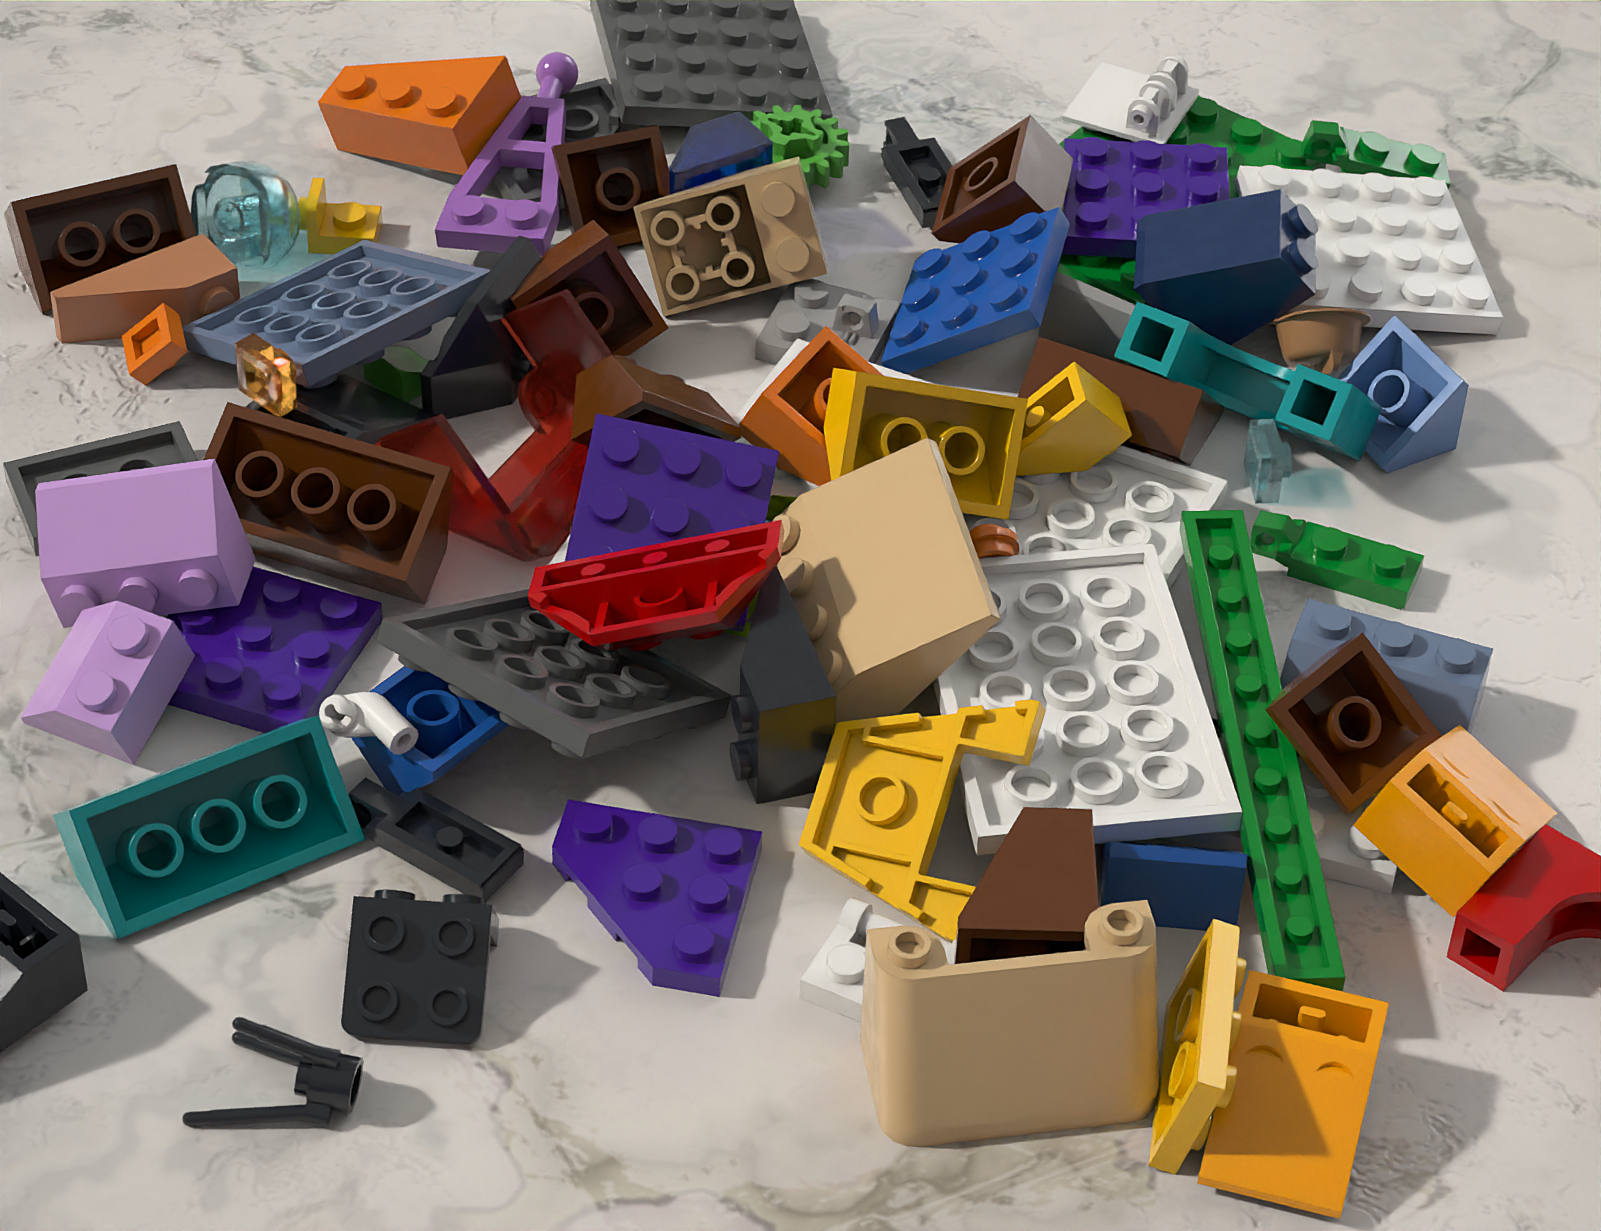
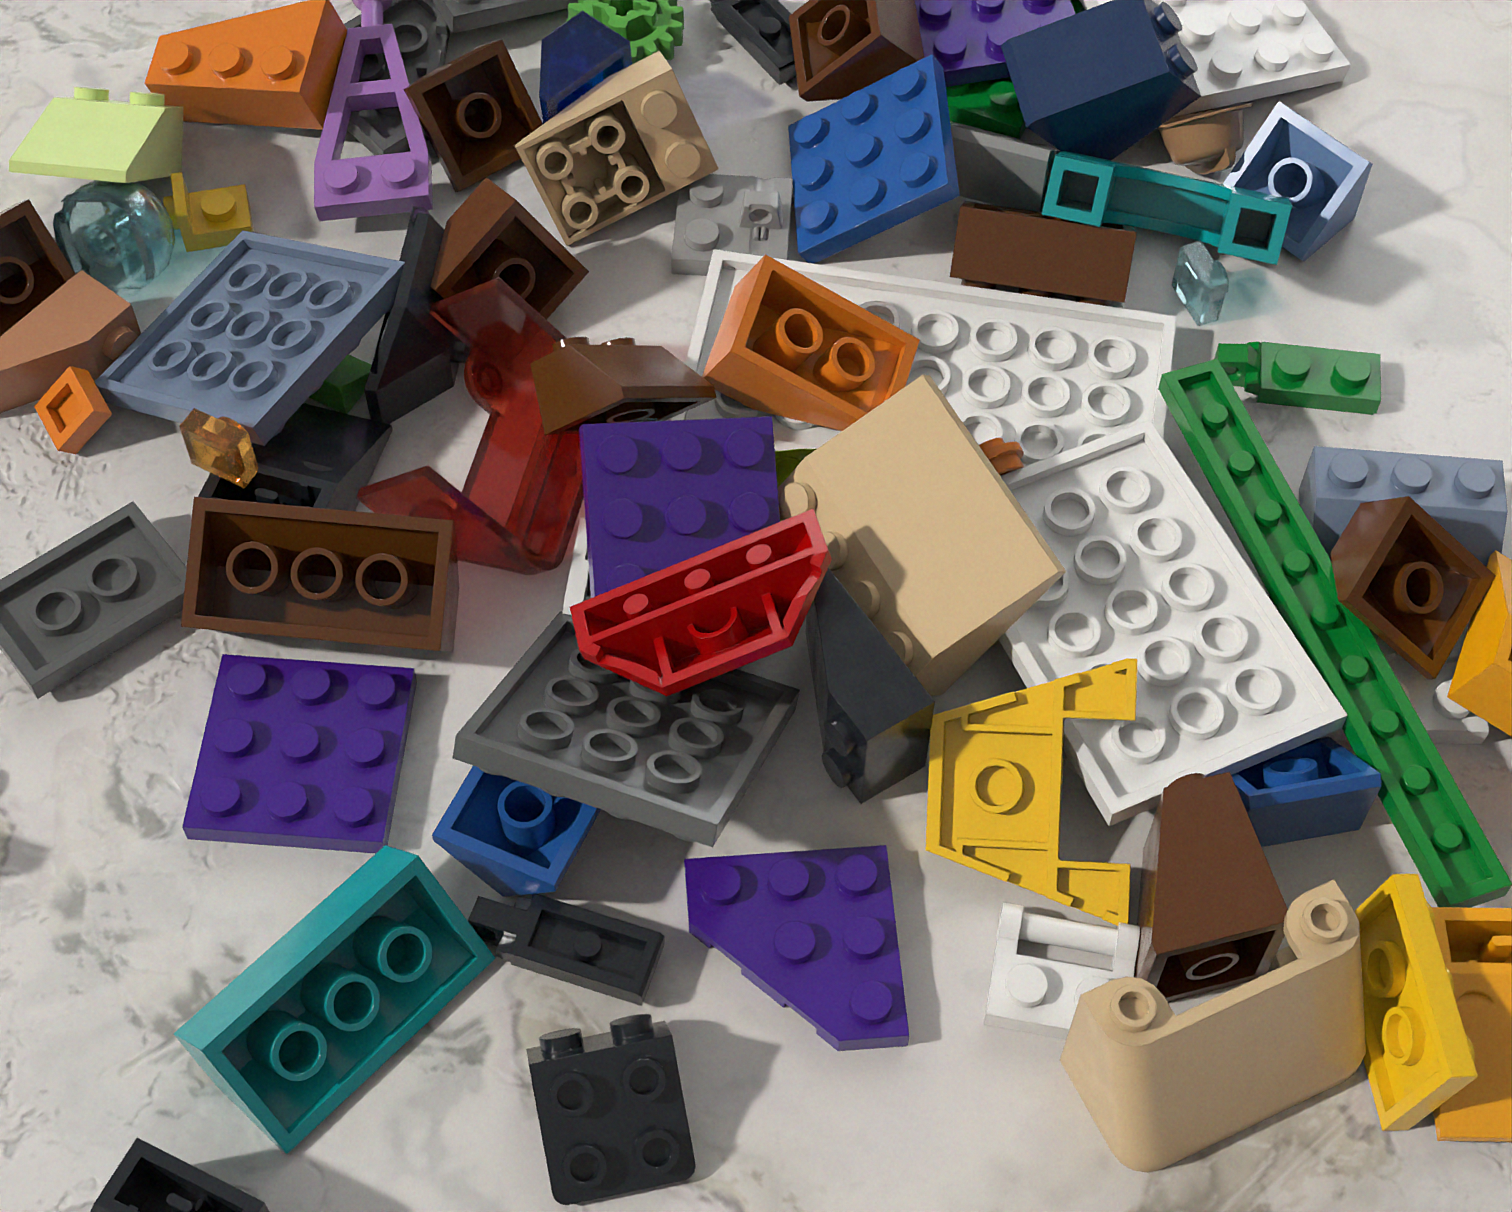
camera: 15 degrees left, 15 degrees up
(111, 680) = (172, 847): lavender slope -> none
(142, 539) = (155, 683): lavender slope -> none
(260, 130) = (103, 138): none -> yellowish green slope
(365, 716) = (469, 839): white arm -> none
(973, 429) = (876, 345): yellow slope -> none
(1071, 425) = (1009, 304): yellow slope -> none

